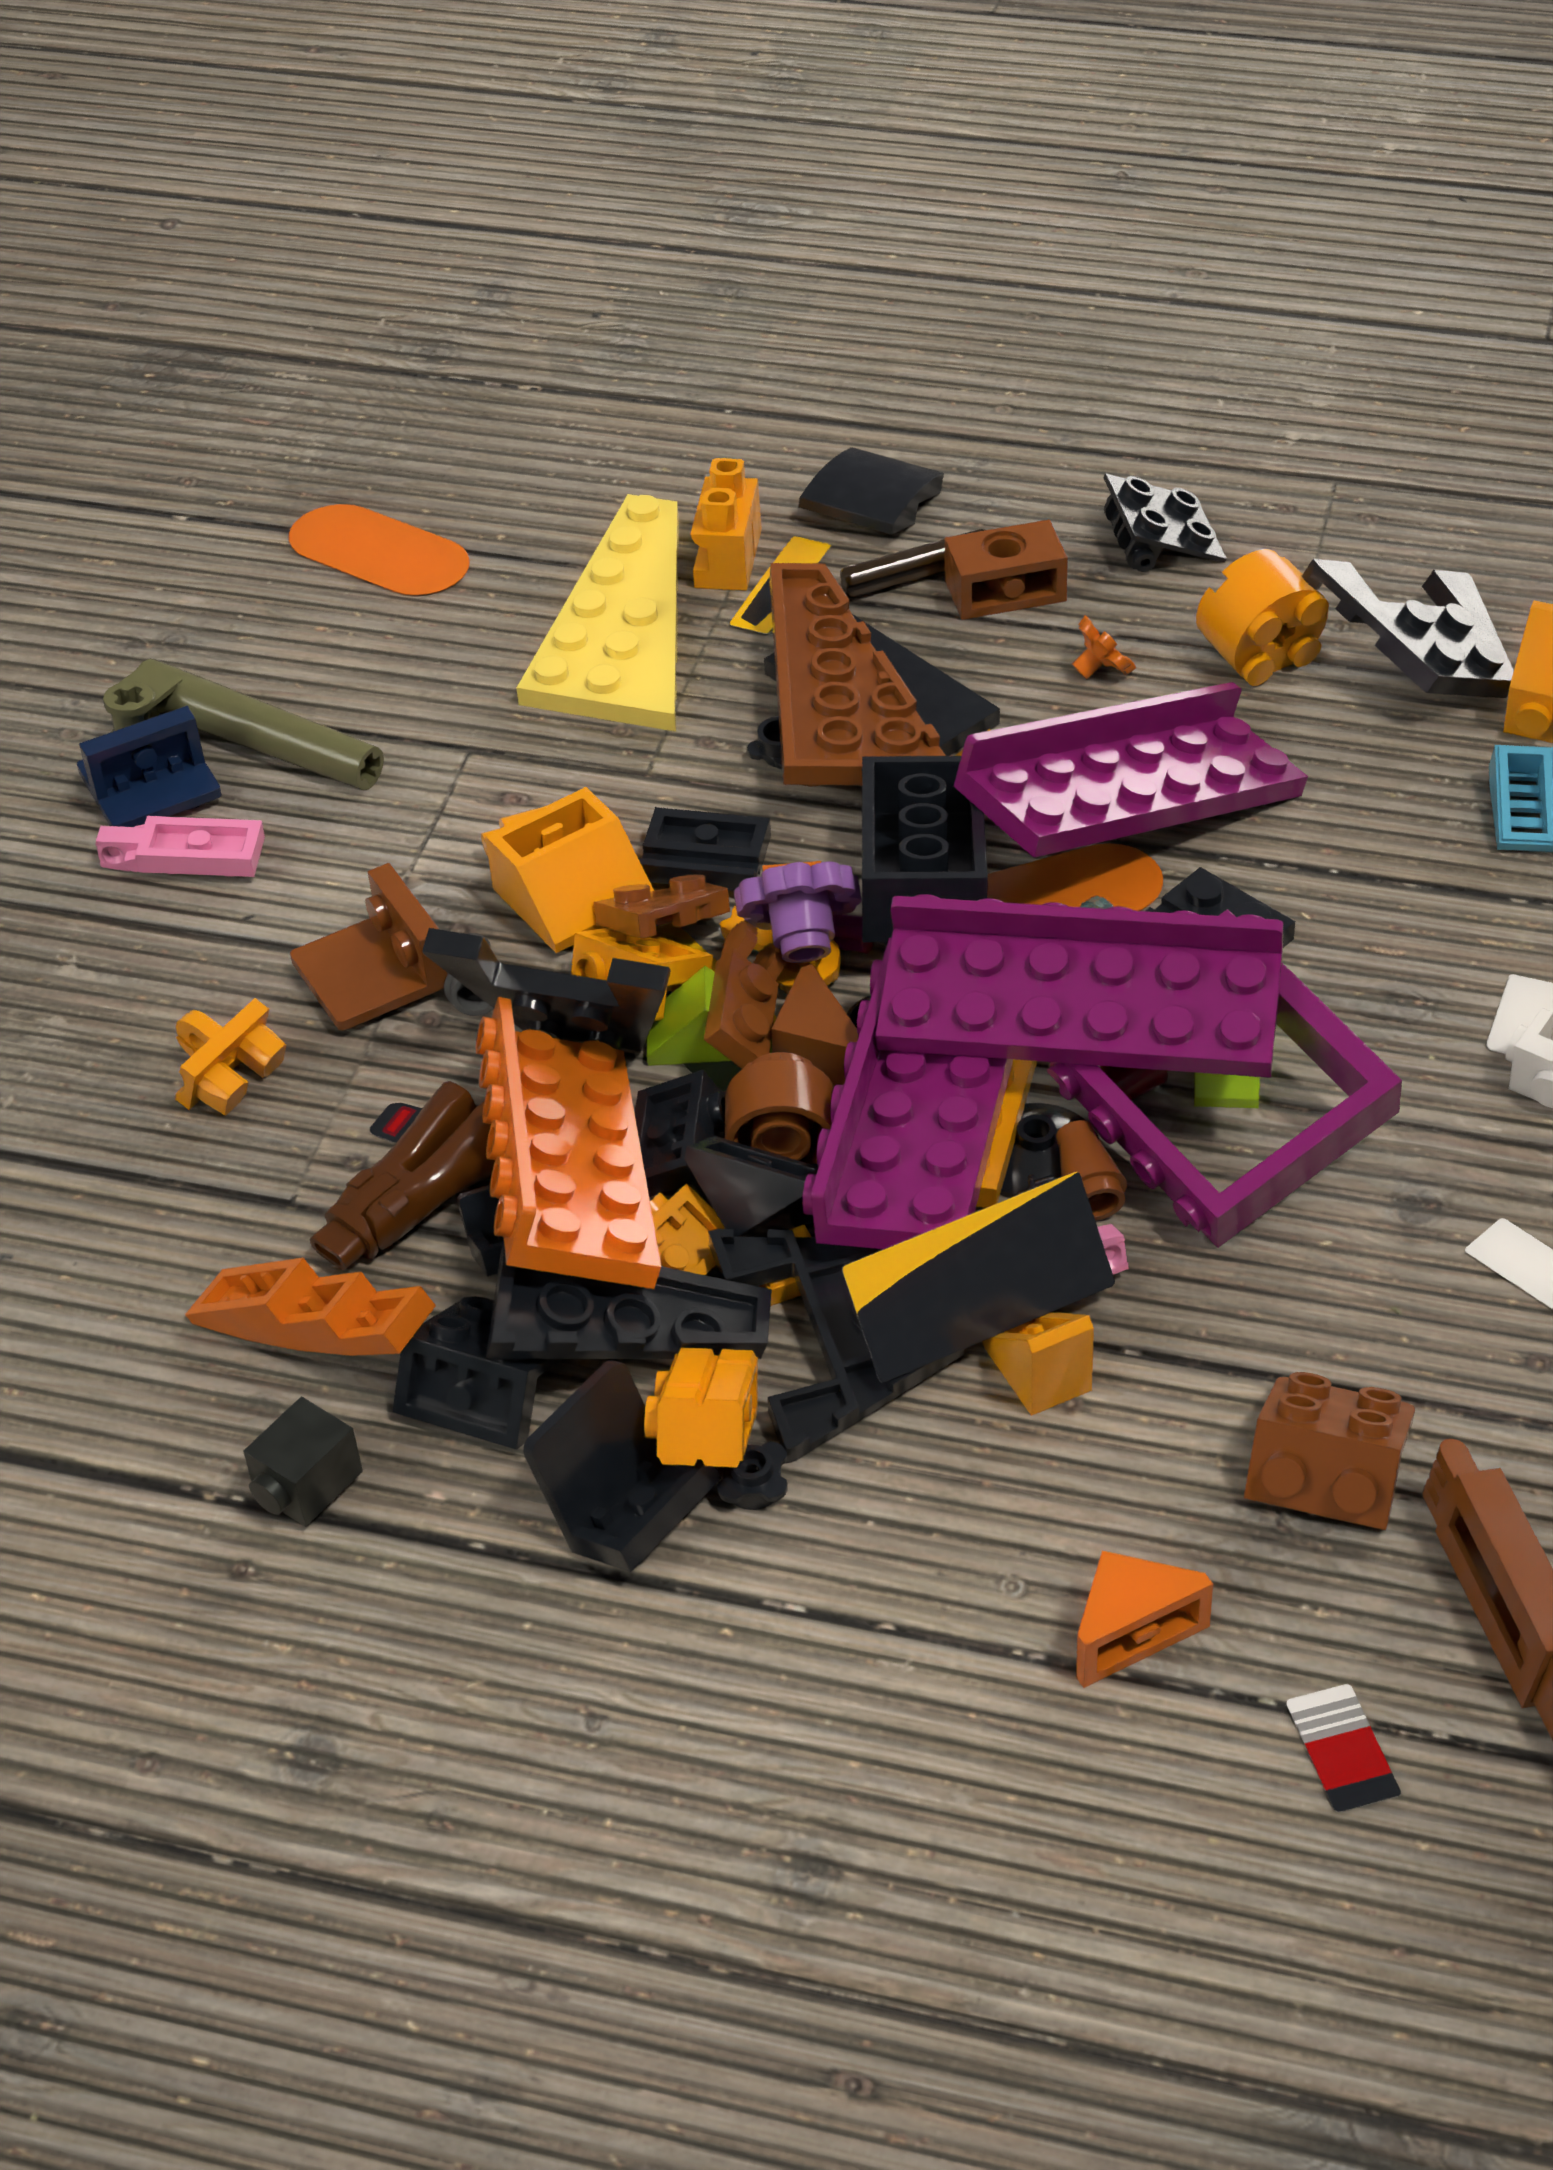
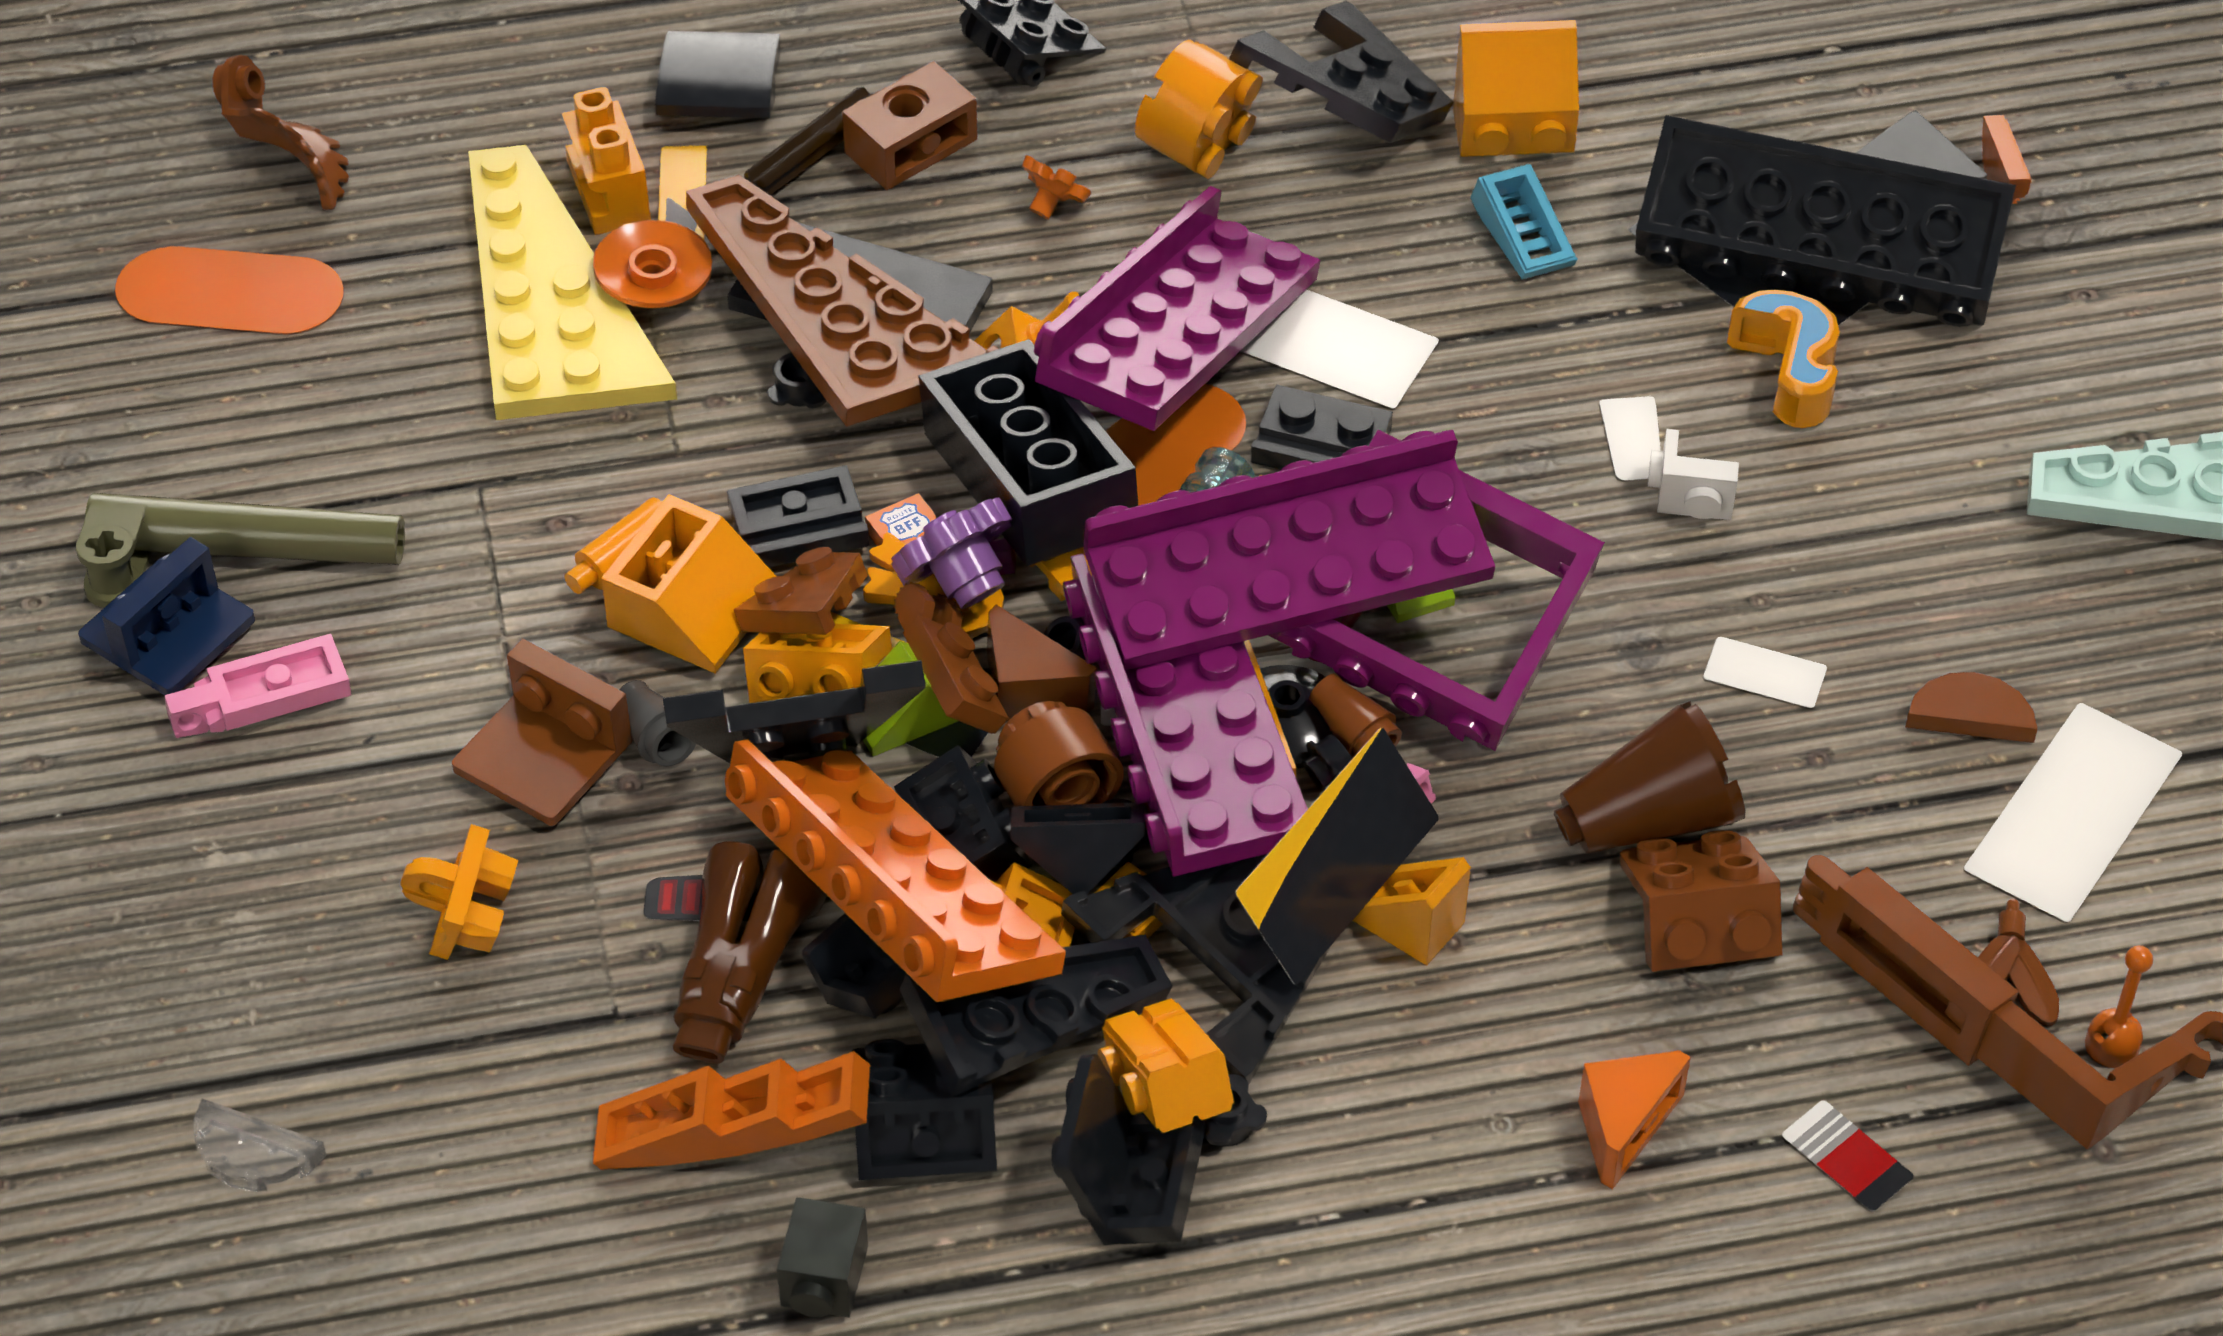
camera: 30 degrees left, 5 degrees up
(473, 413) = (240, 90): none -> dark orange plant
(715, 616) = (652, 264): none -> orange dish
(1287, 857) = (1344, 348): none -> white sticker
(1334, 1324) = (1653, 787): none -> reddish brown cone

